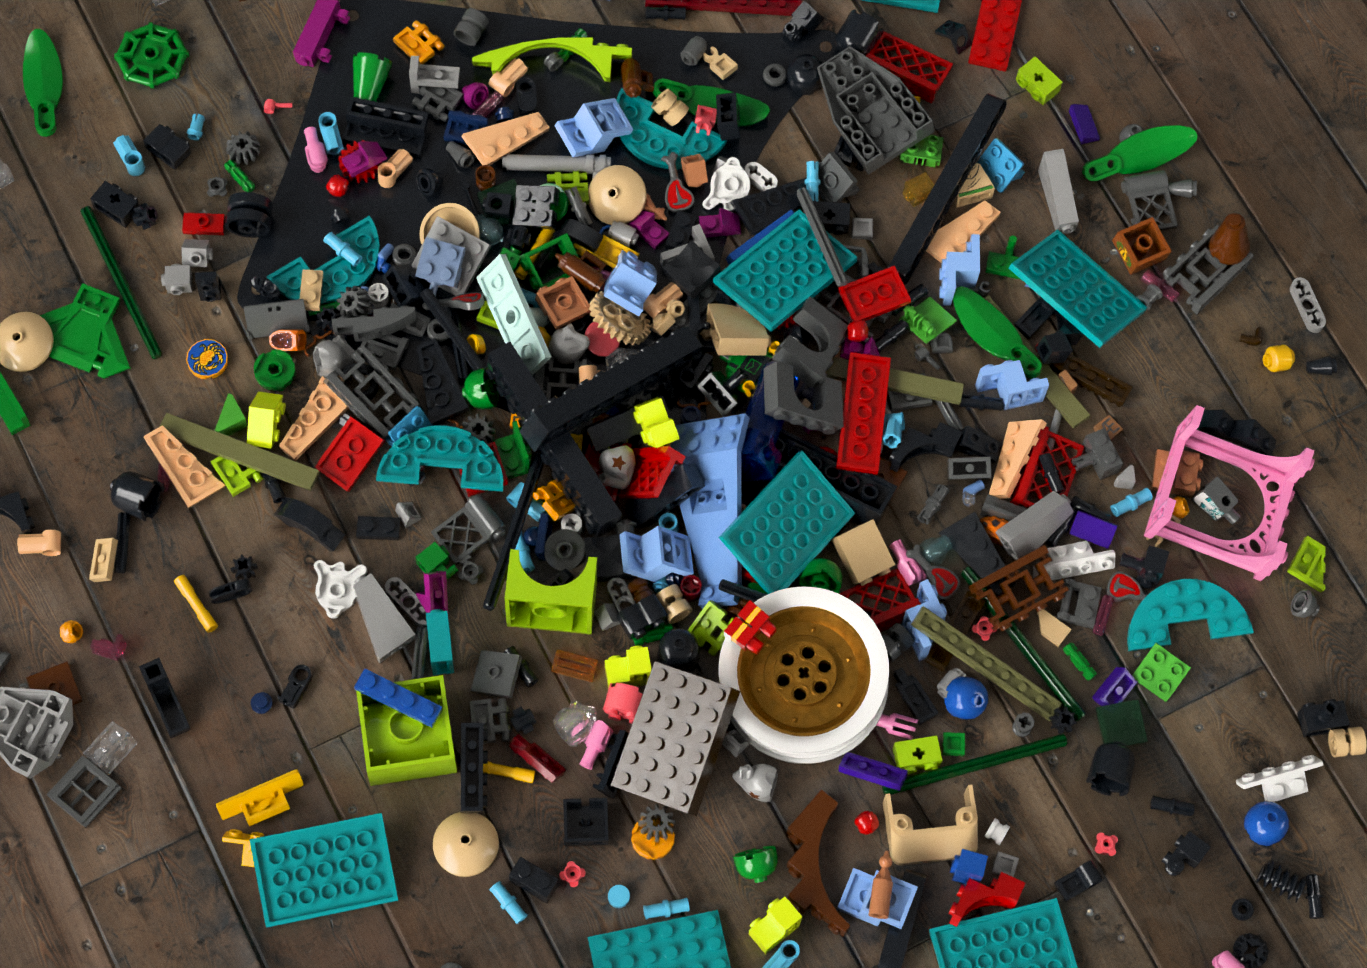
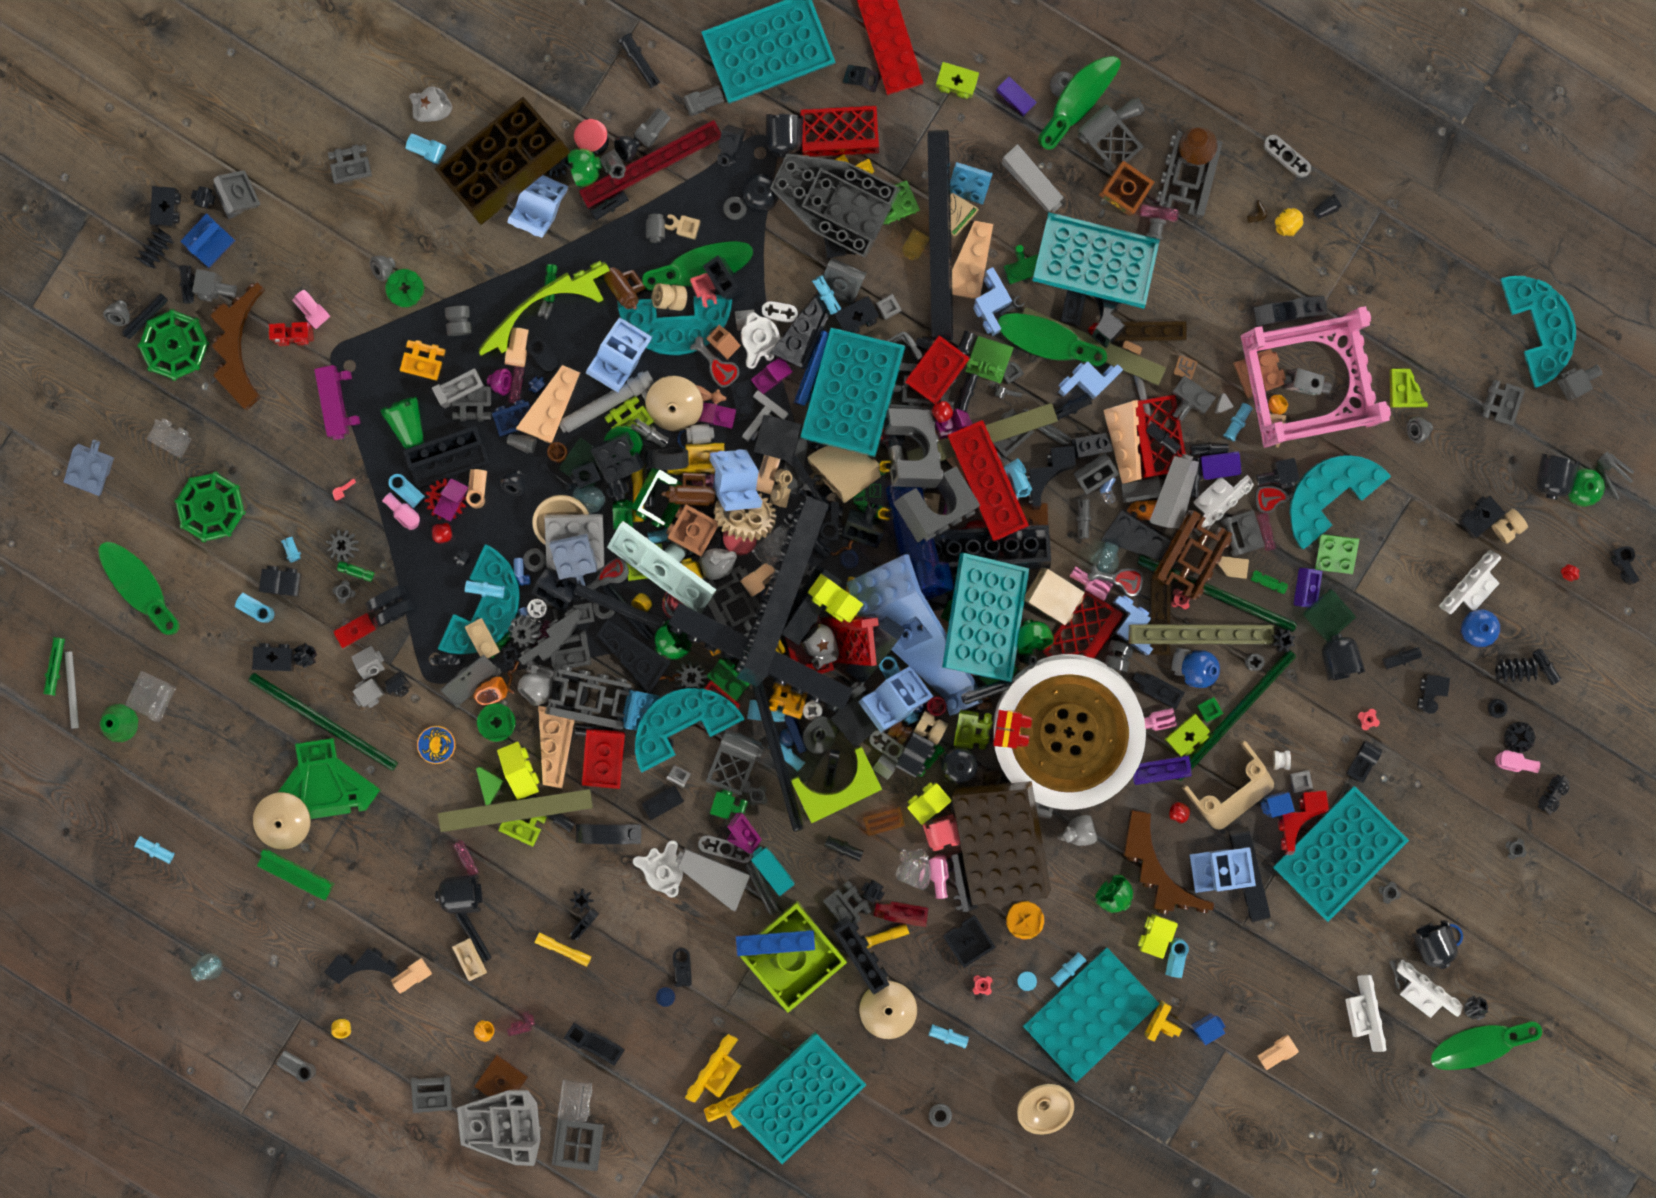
camera: 30 degrees left, 20 degrees up
(187, 474) = (487, 851): light nougat wing -> none
(496, 674) = (830, 867): dark grey plate -> none
(533, 880) = (957, 1009): black brick -> none
(656, 814) = (1019, 917): dark grey gear -> none
(822, 237) = (866, 345): dark grey axle -> none
(881, 890) = (1225, 868): nougat wheel -> none

